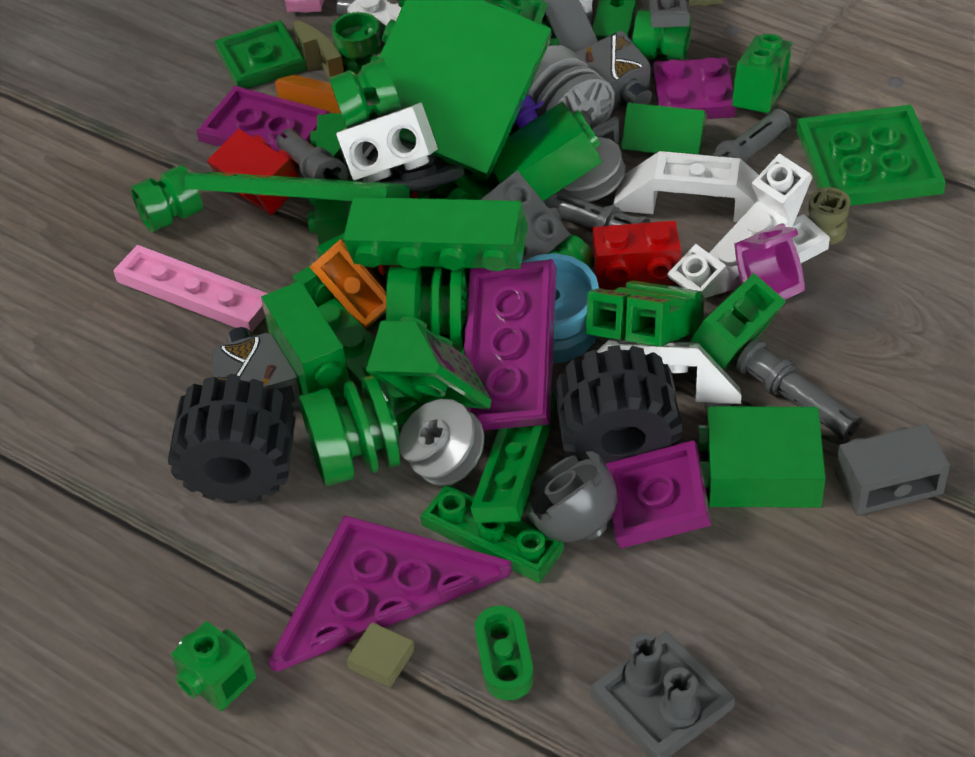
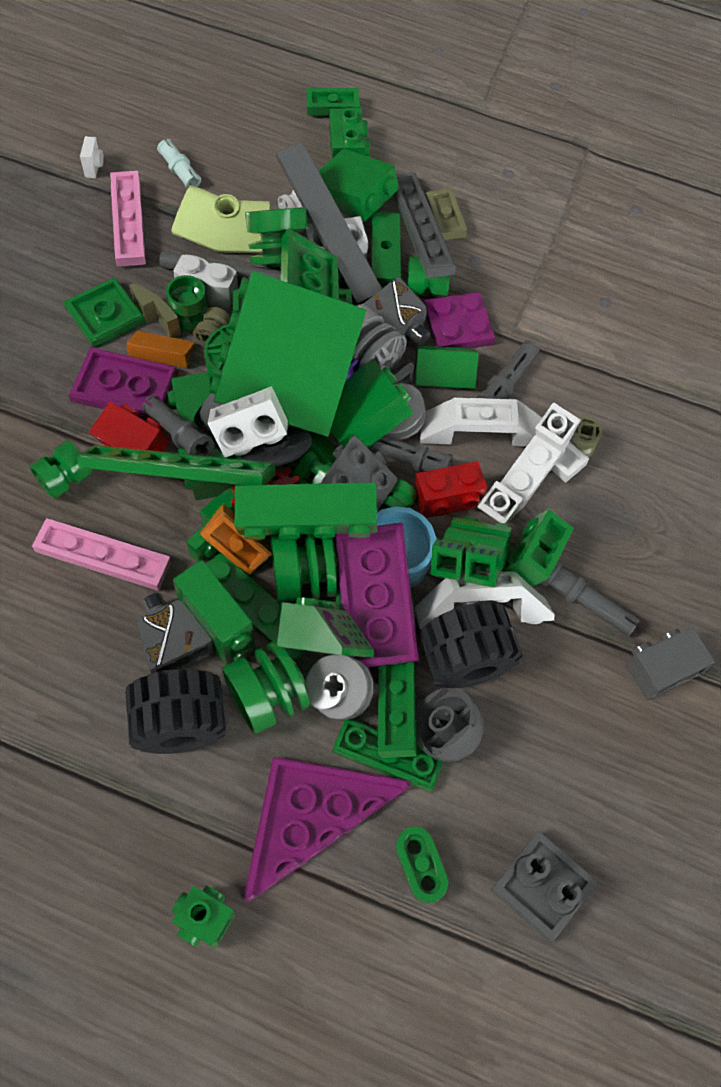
camera: 20 degrees left, 15 degrees up
(351, 99) = (226, 385): green wheel -> none
(380, 654) = (327, 878): olive tile -> none
(659, 494) = (510, 709): magenta plate -> none
(762, 73) = (513, 310): green brick -> none
(763, 457) = (577, 664): green brick -> none
(772, 259) = (554, 489): magenta piece -> none
(871, 154) = (602, 377): green plate -> none

